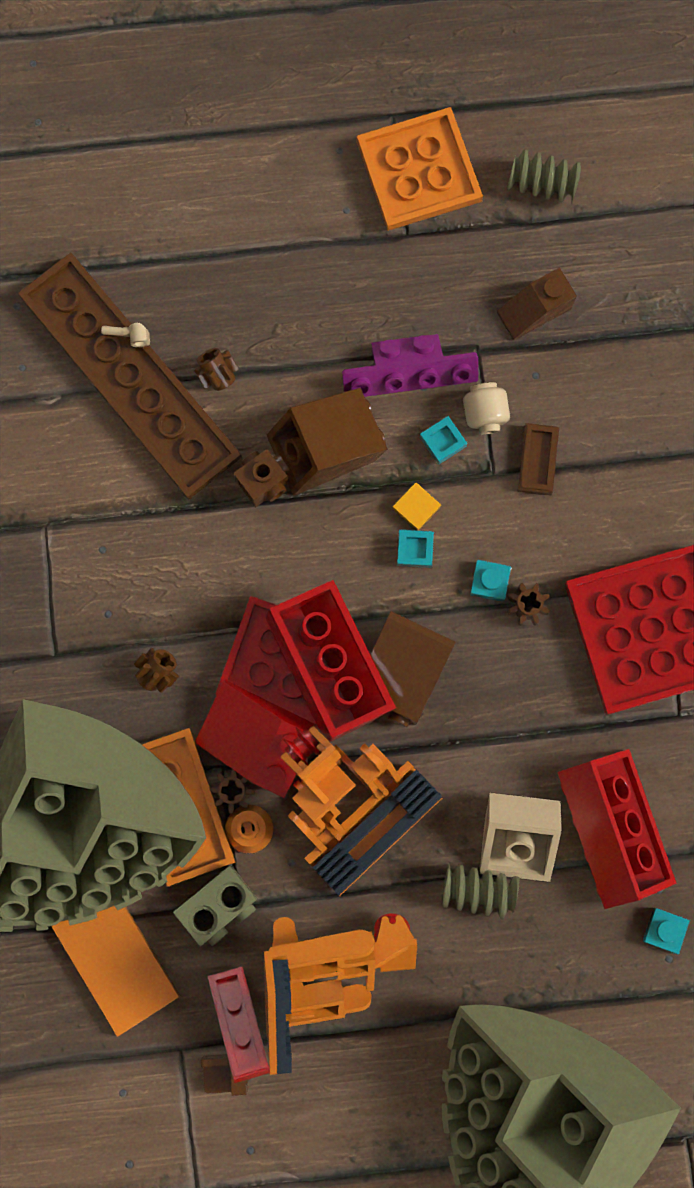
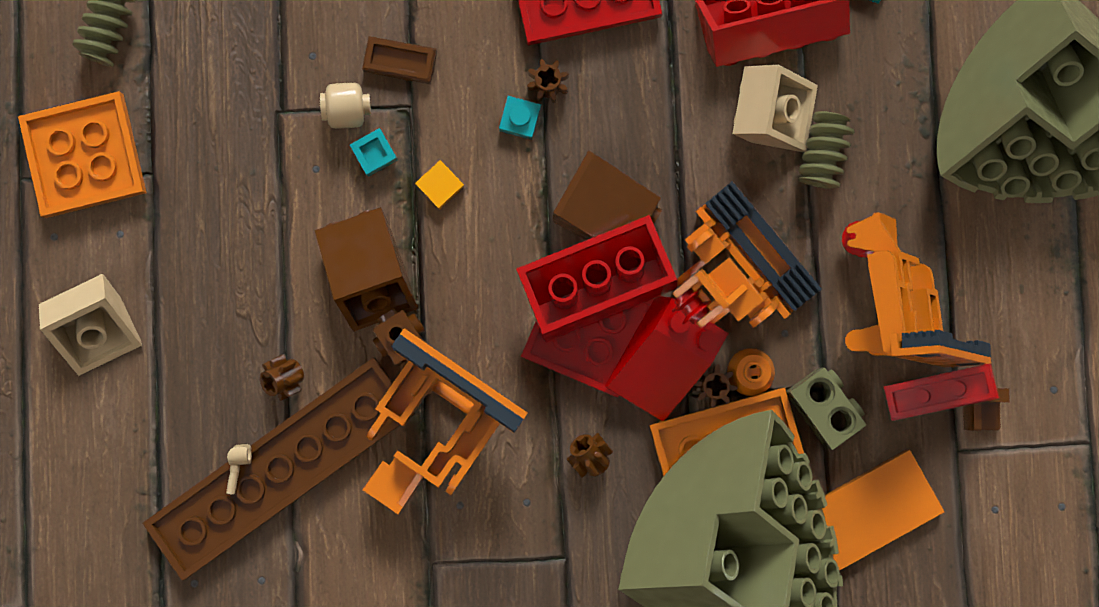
camera: 85 degrees left, 5 degrees up
(225, 498) = (428, 372): none -> orange container
(256, 188) = (88, 325): none -> tan slope
(410, 366) = (292, 179): magenta bracket -> none
(415, 548) = (483, 188): teal plate -> none
(537, 304) = (239, 45): reddish brown slope -> none

